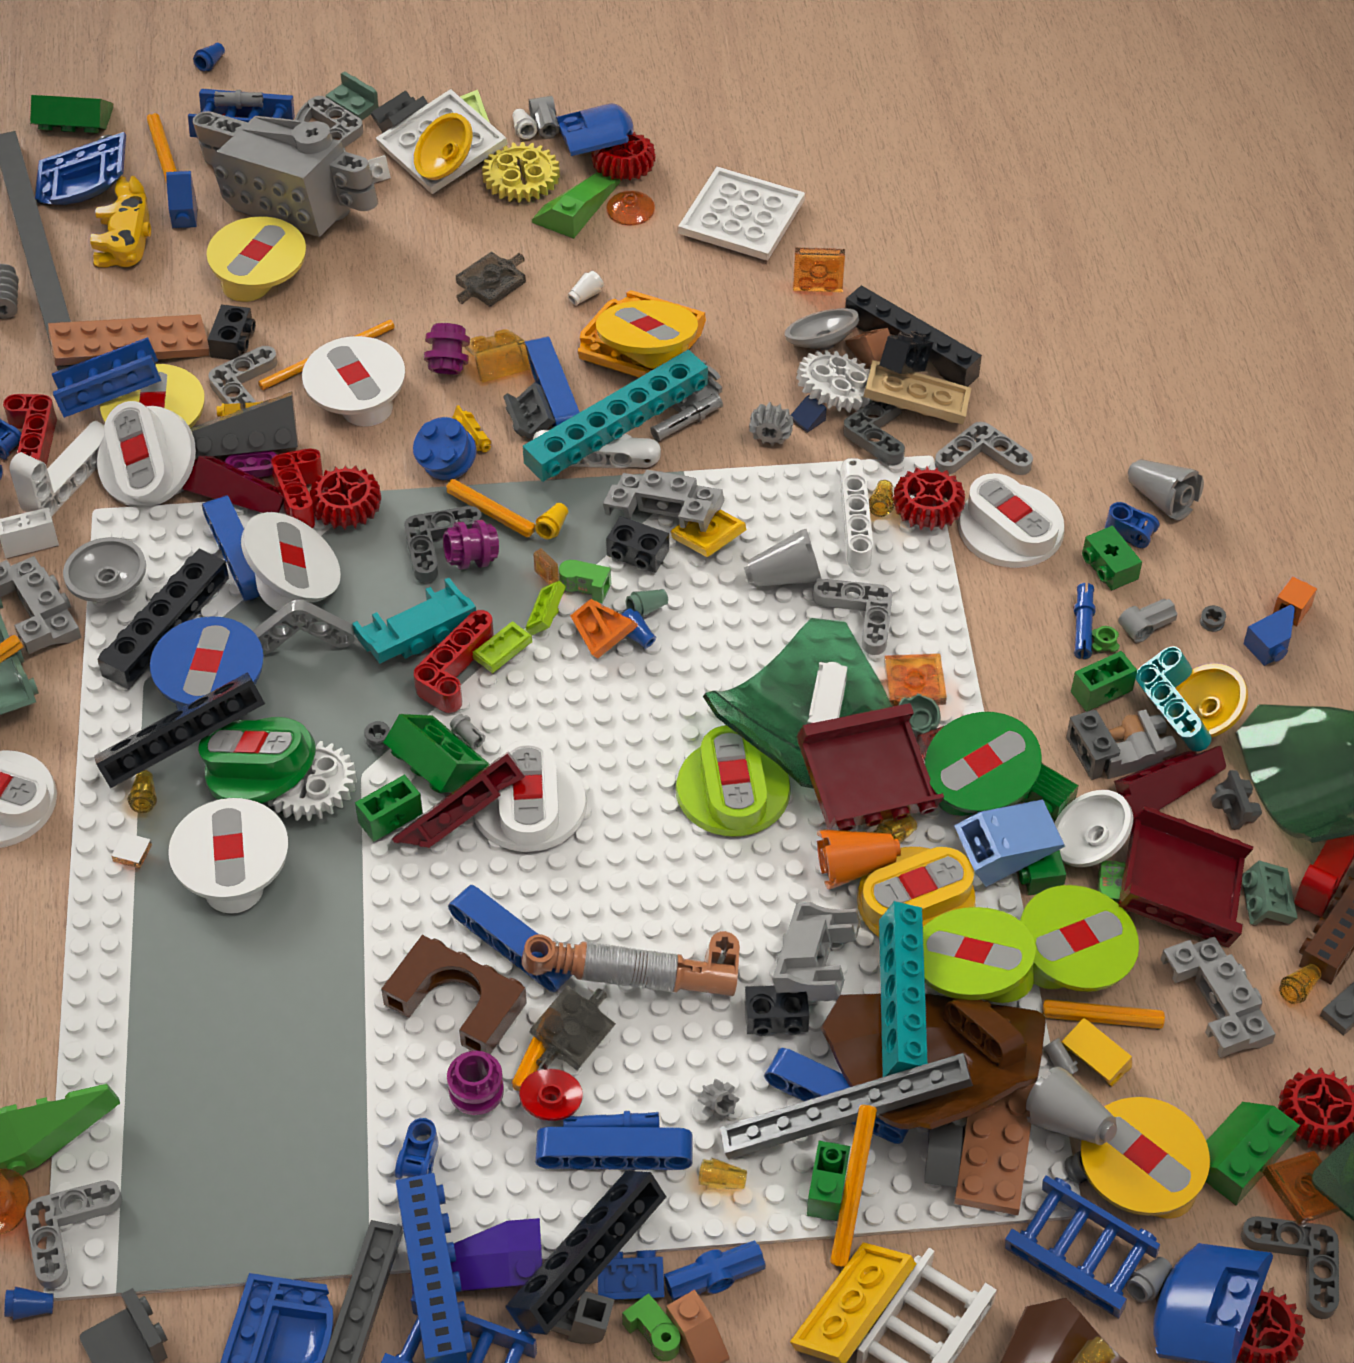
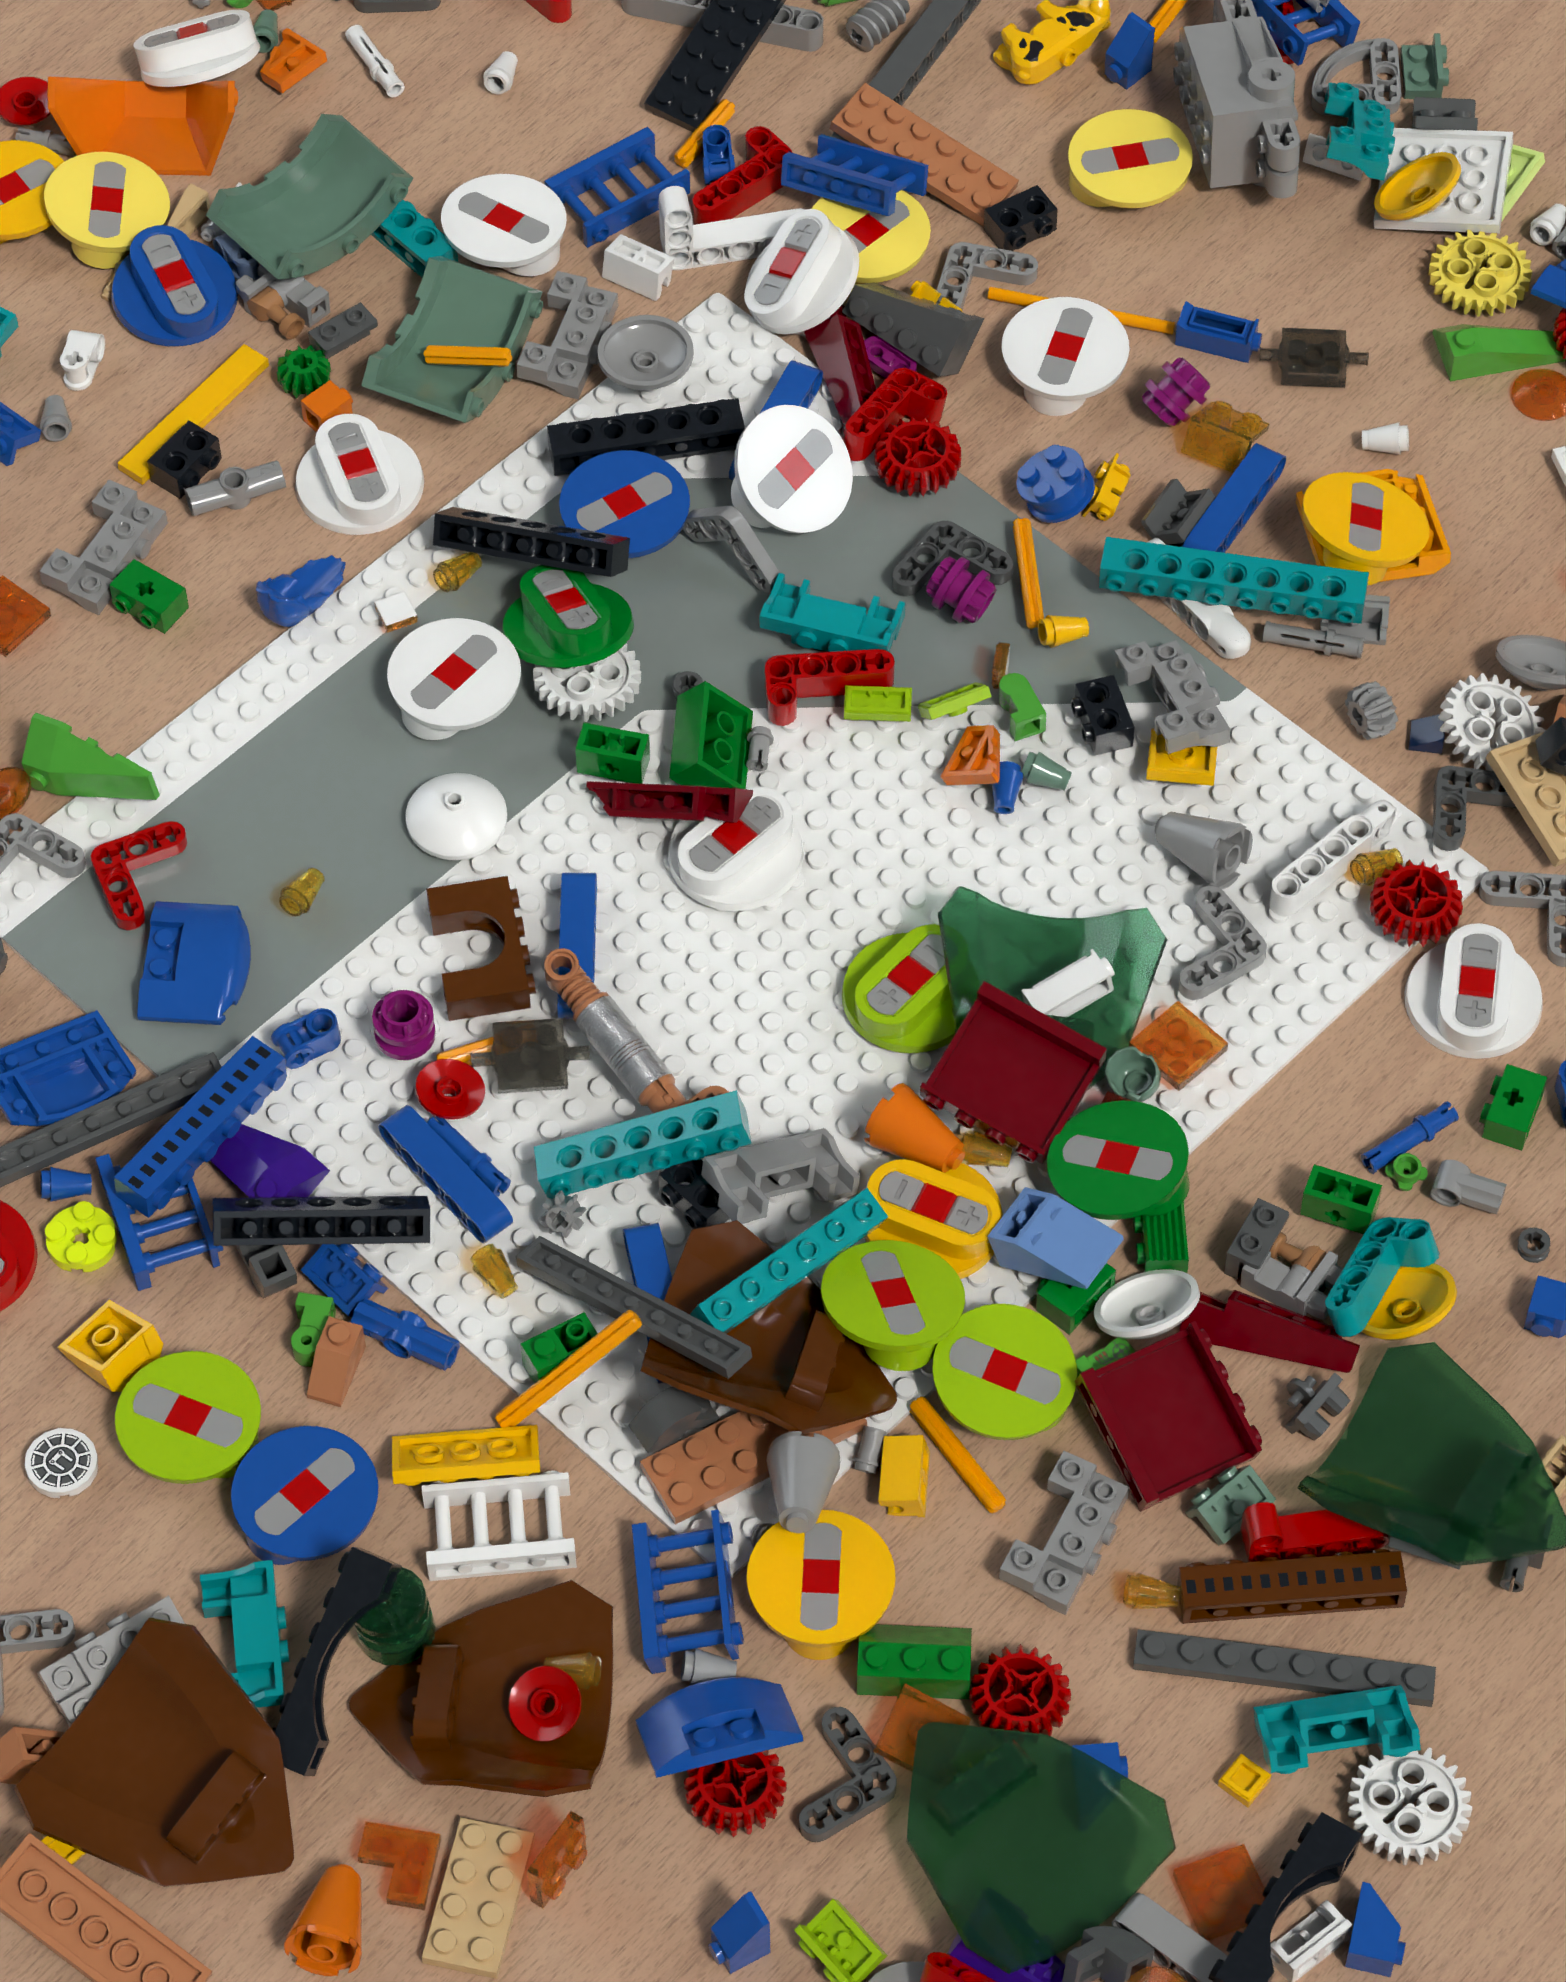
camera: 50 degrees right, 5 degrees up
(49, 892) = (296, 596): none -> blue hair
(151, 1170) = (119, 869): none -> red beam
(277, 1180) = (194, 963): none -> blue slope
(295, 1069) = (301, 893): none -> clear yellow cone
(331, 947) = (457, 829): none -> white dish
(375, 143) = (1368, 132): none -> teal bracket
(423, 306) = (1217, 333): none -> blue window
(687, 1046) = (642, 1145): none -> teal brick

